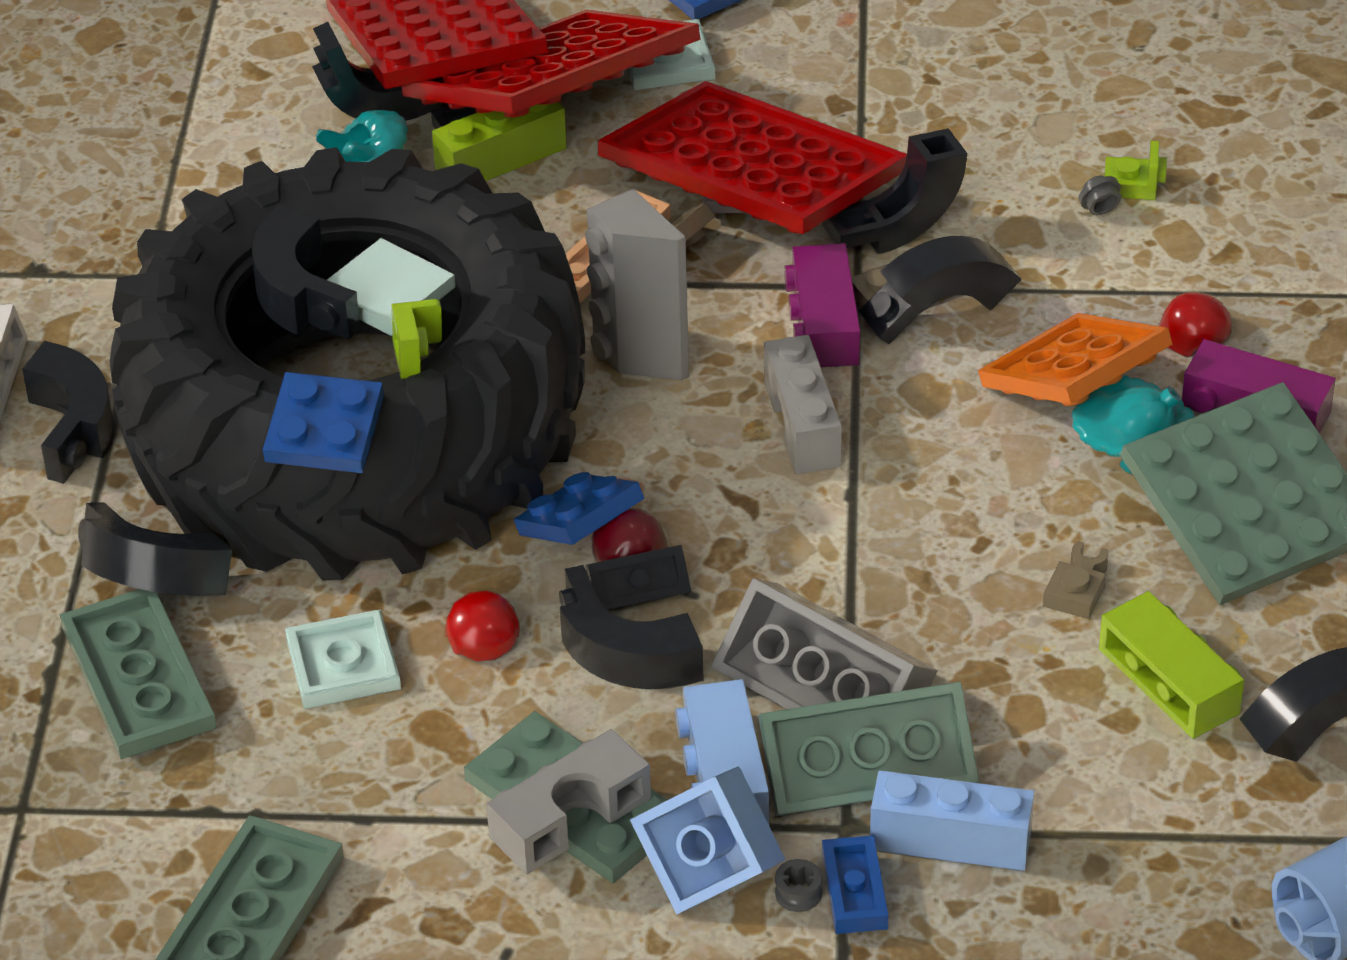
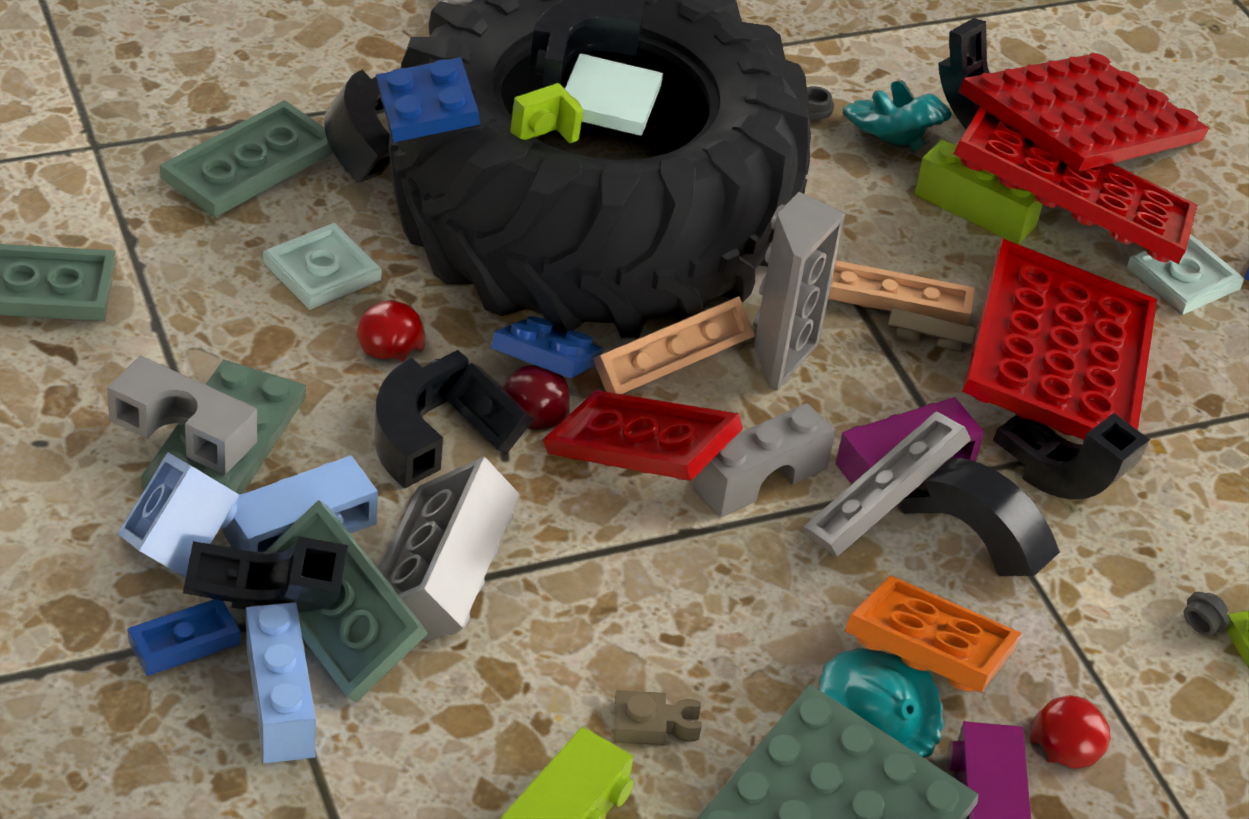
camera: 60 degrees right, 0 degrees up
(615, 422) = (674, 347): none -> light nougat plate
(750, 468) = (643, 434): none -> red plate
(798, 898) = (168, 591): dark grey bush -> none
(844, 772) = (304, 575): none -> black arch
(886, 326) = (887, 483): none -> light grey plate

